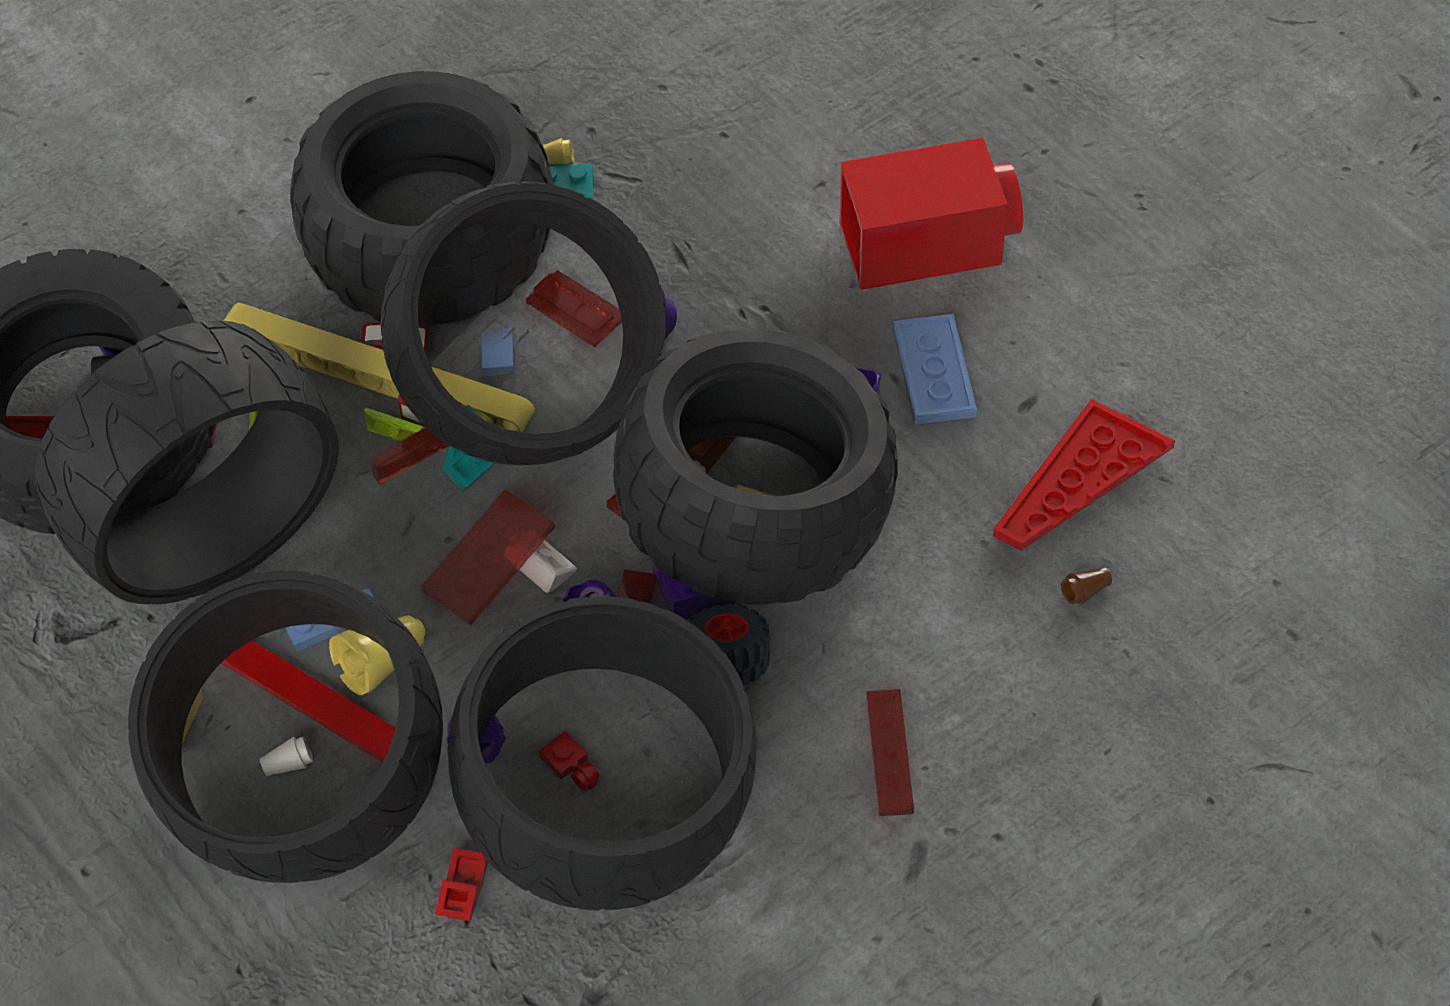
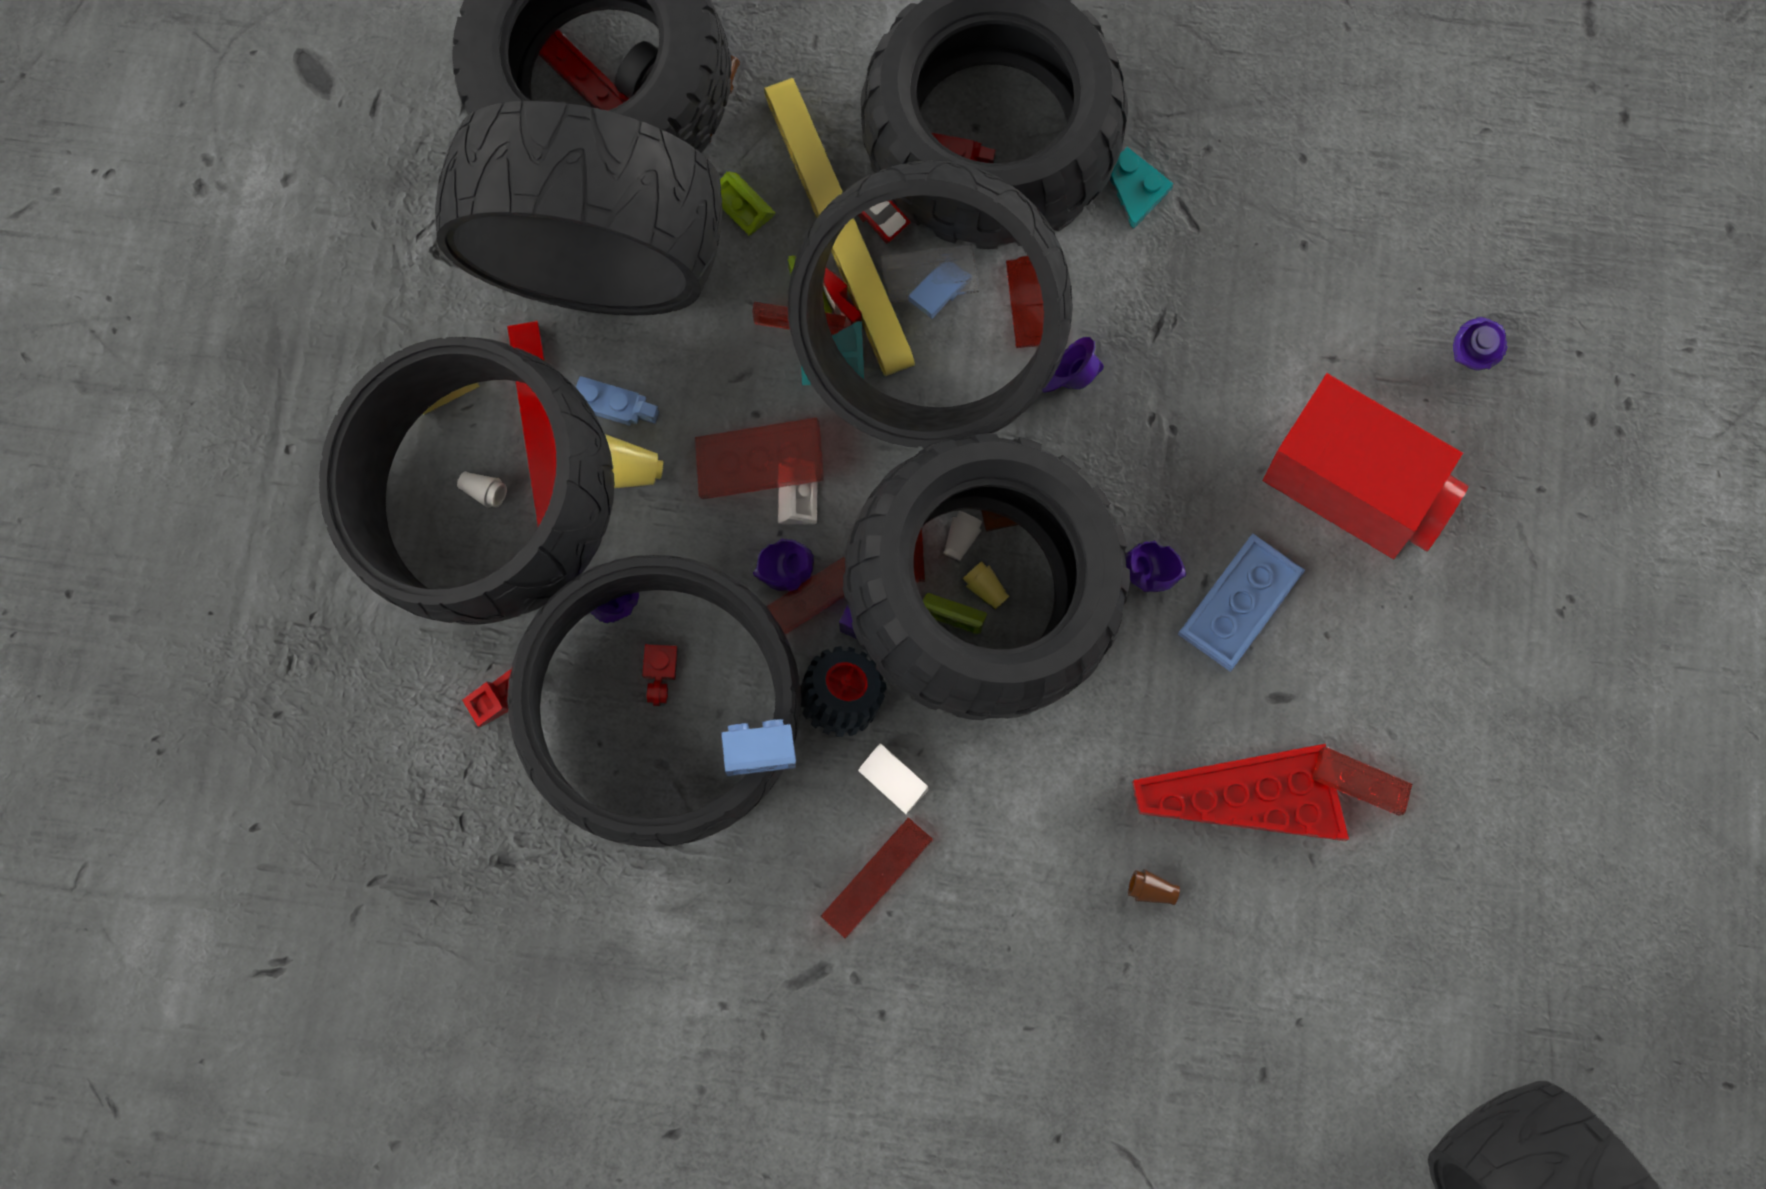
camera: 45 degrees right, 20 degrees up
(559, 152) = (1152, 148): light yellow cone -> none
(730, 683) = (758, 748): none -> medium blue slope
(826, 675) = (893, 778): none -> white slope
(909, 95) = (1480, 344): none -> dark purple hair
(1141, 399) = (1362, 781): none -> clear red tile

